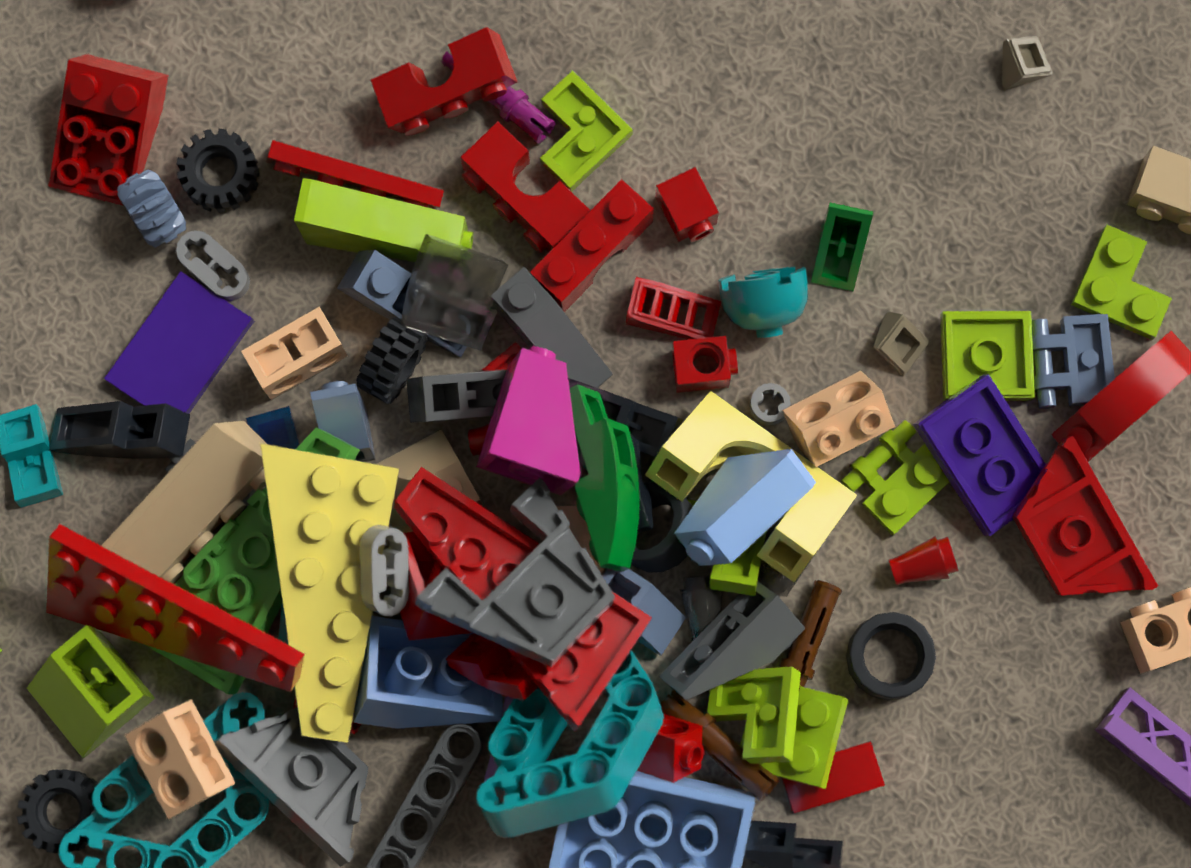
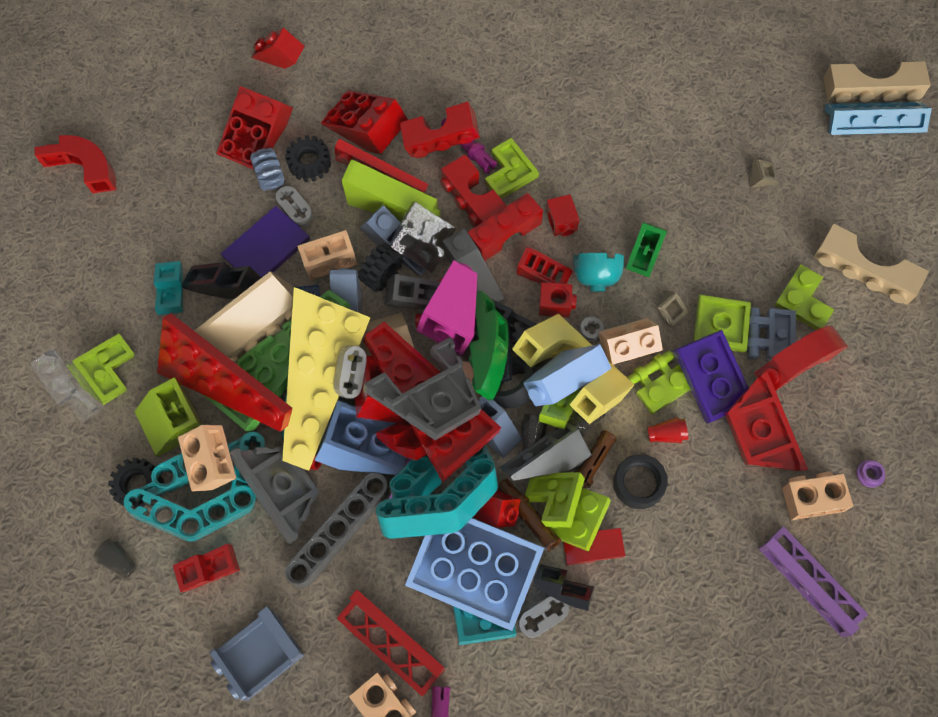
camera: 10 degrees right, 10 degrees down
(304, 77) = (366, 120): none -> red slope

